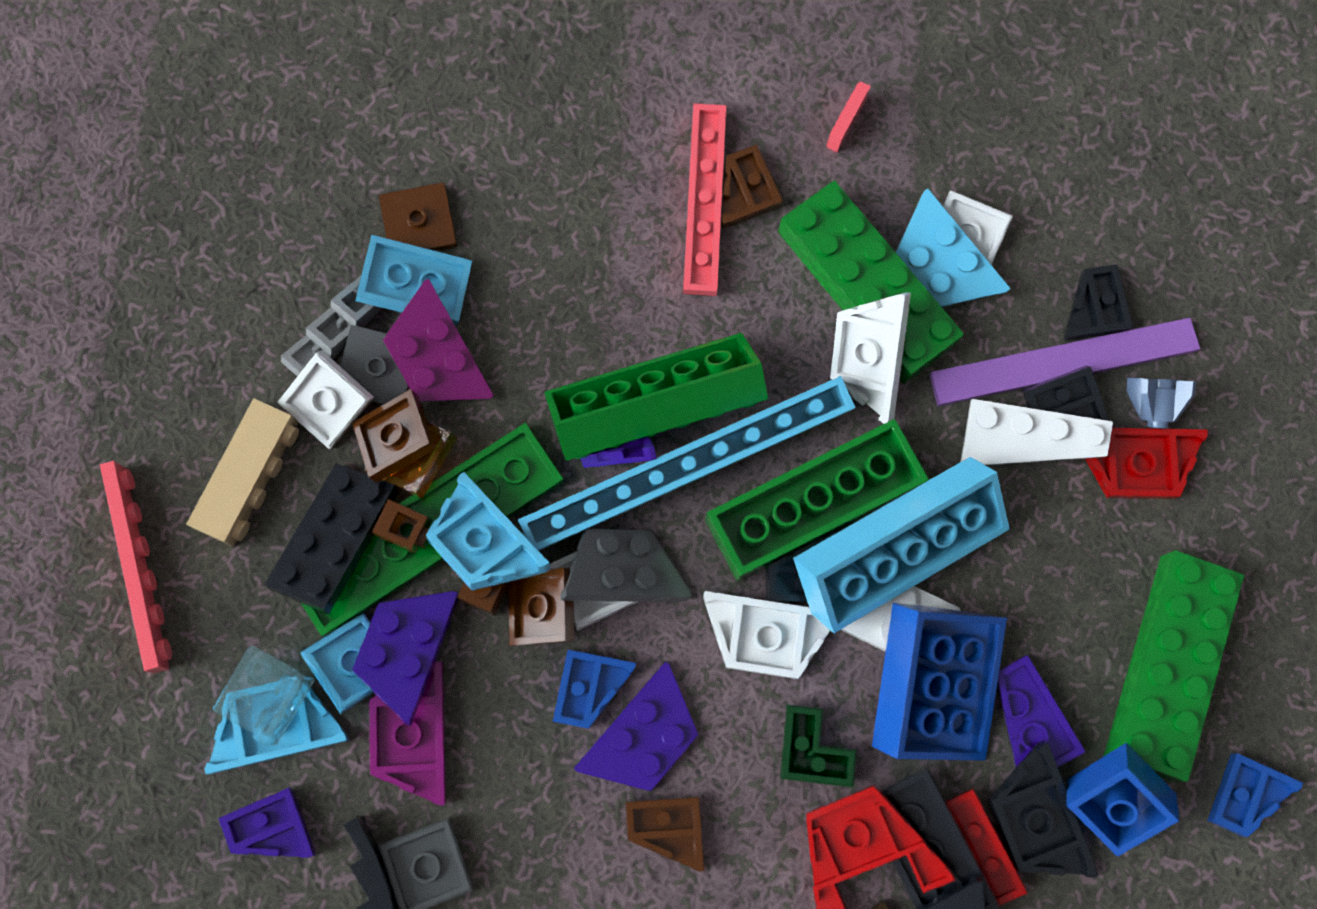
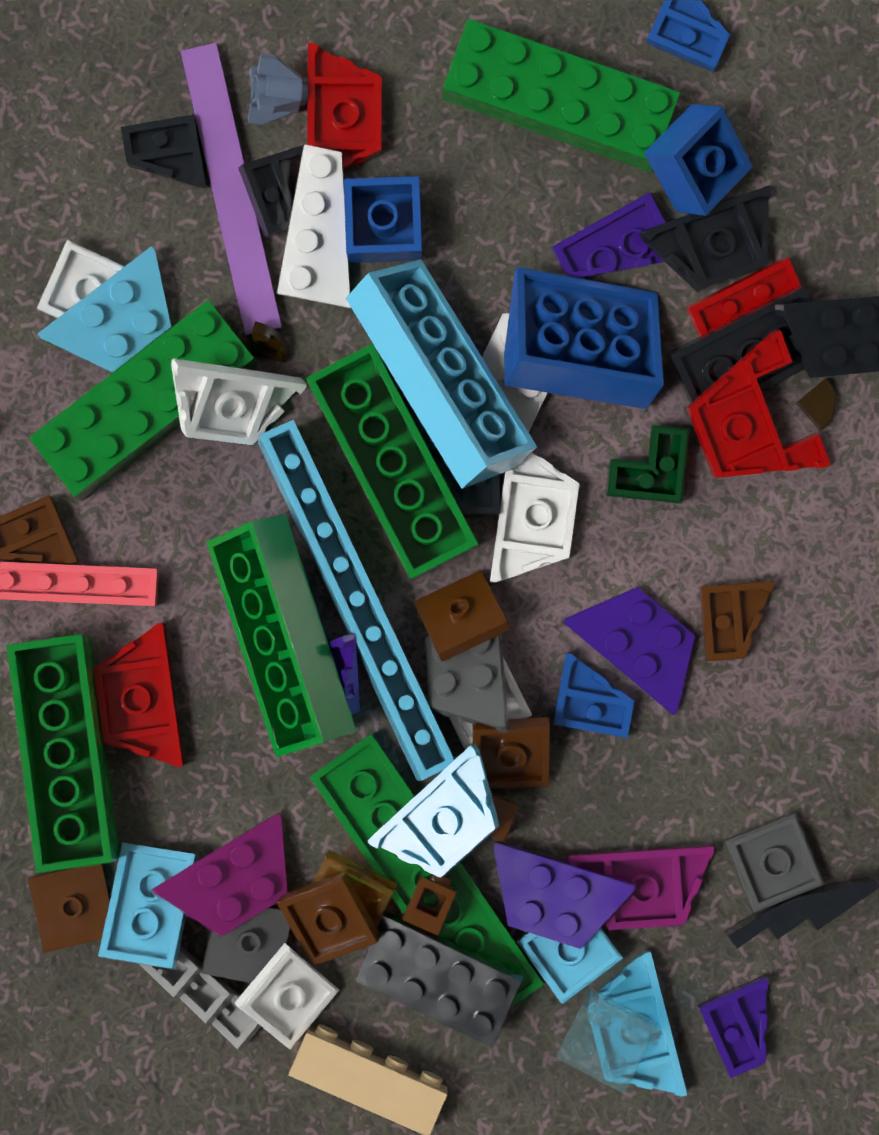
camera: 80 degrees left, 10 degrees up
(553, 209) = (62, 753): none -> green brick
(599, 277) = (140, 700): none -> red wing
(672, 563) = (461, 615): none -> reddish brown plate
(924, 392) = (268, 343): none -> dark brown tile
(1045, 494) = (383, 219): none -> blue brick

